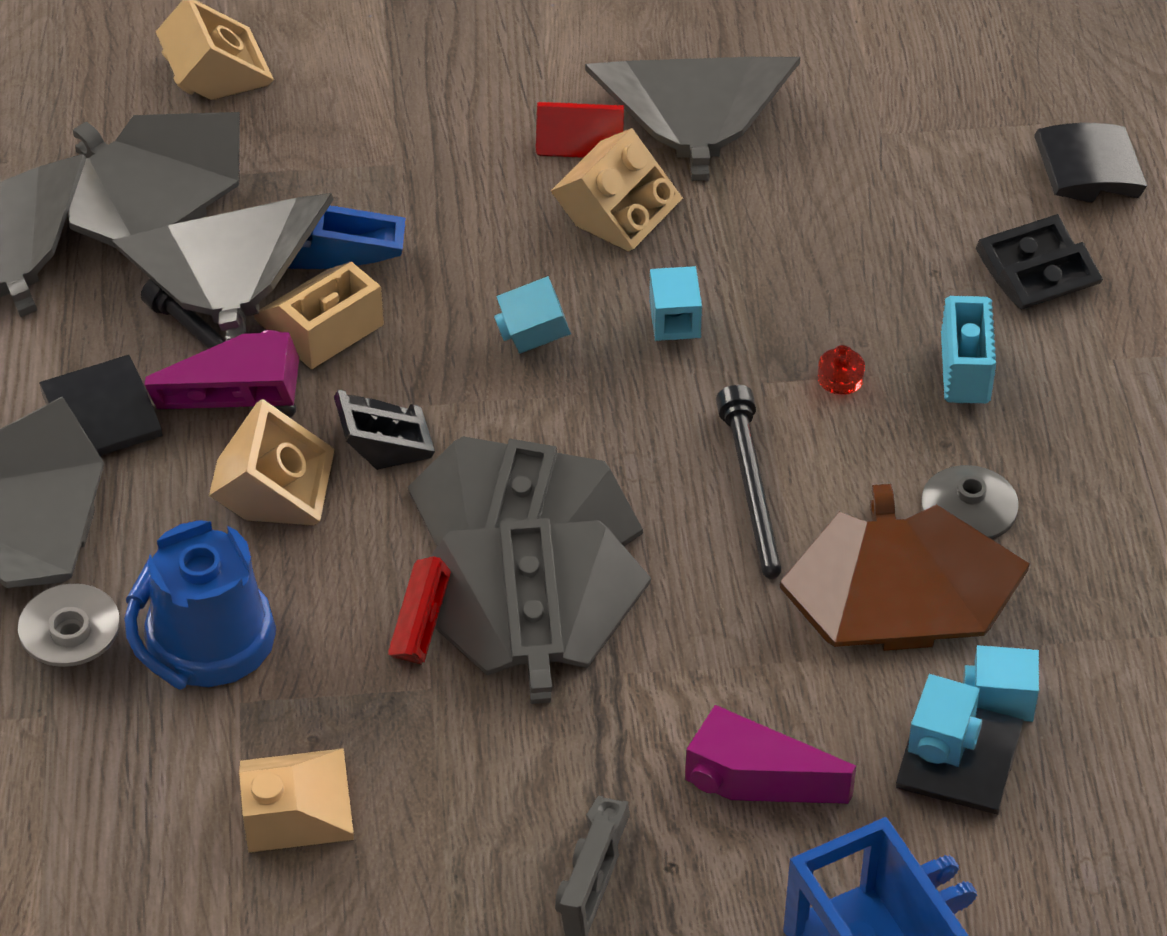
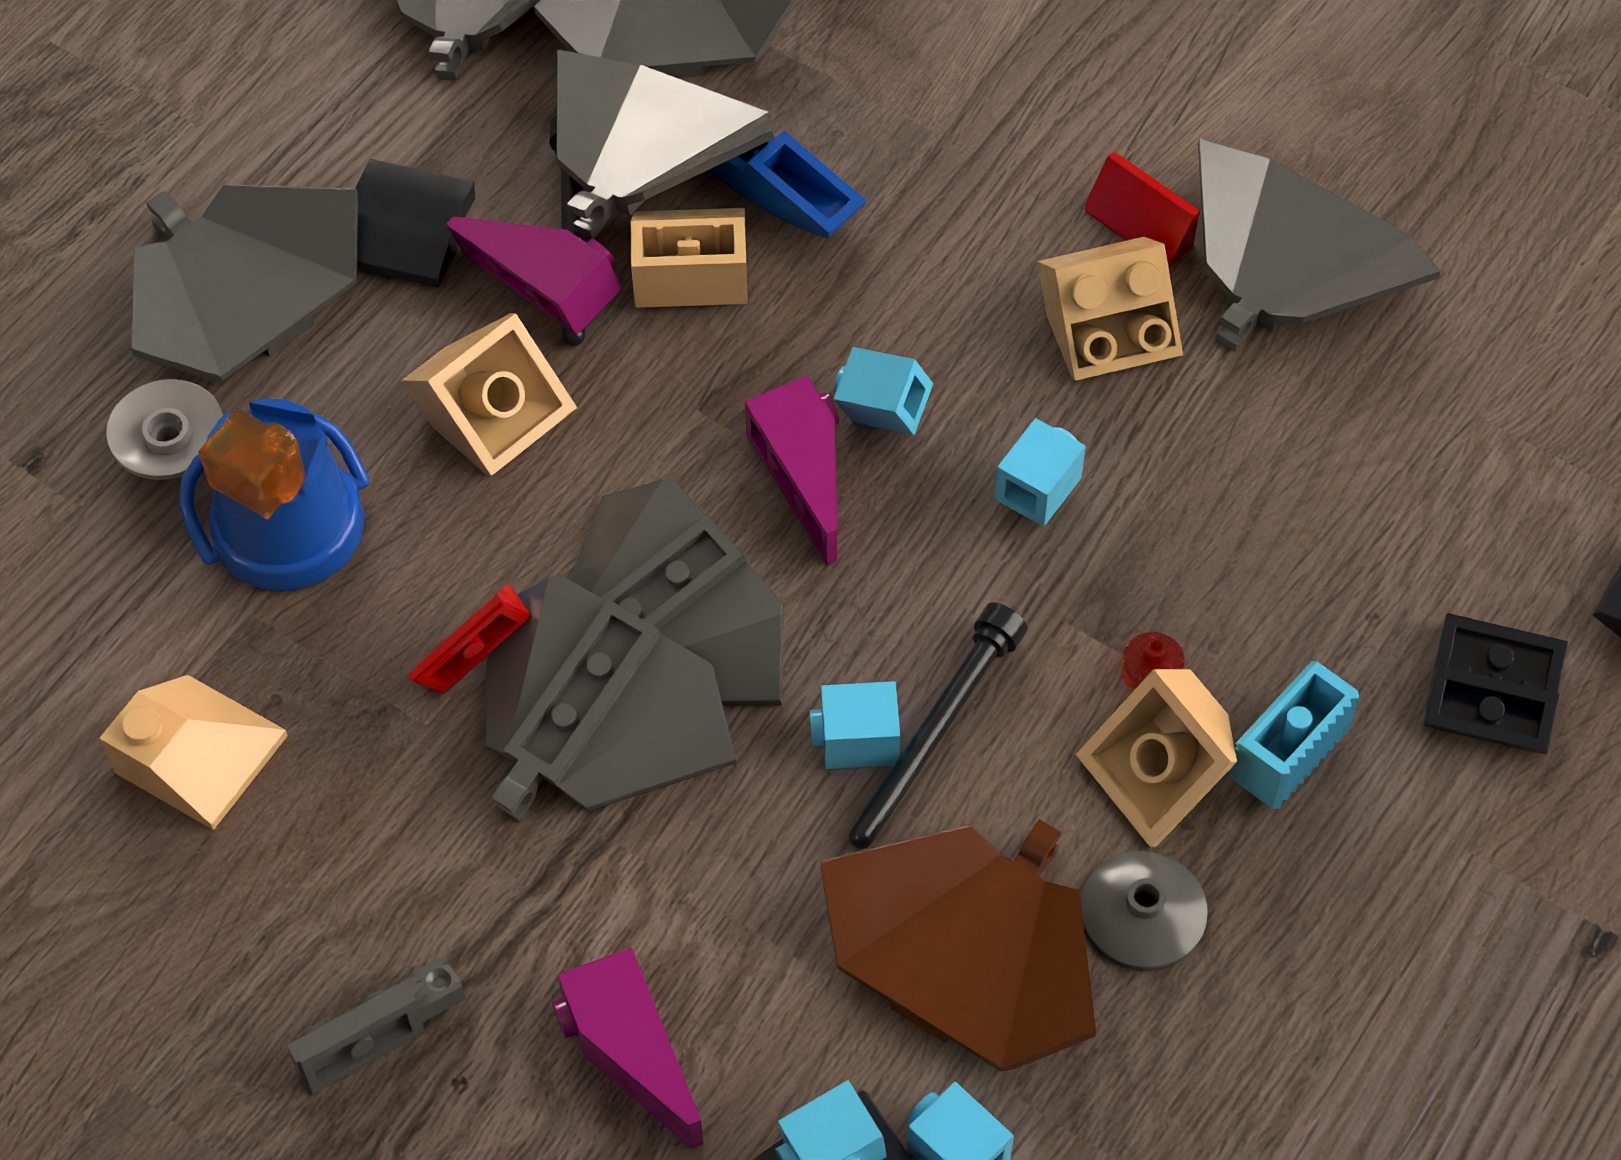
camera: 40 degrees right, 10 degrees up
(214, 563) = (253, 463): none -> clear orange brick
(384, 431) = (630, 415): black slope -> none
(519, 384) = (796, 442): none -> magenta slope
(711, 506) = (857, 725): none -> medium azure brick
(904, 409) = (1161, 751): none -> tan slope

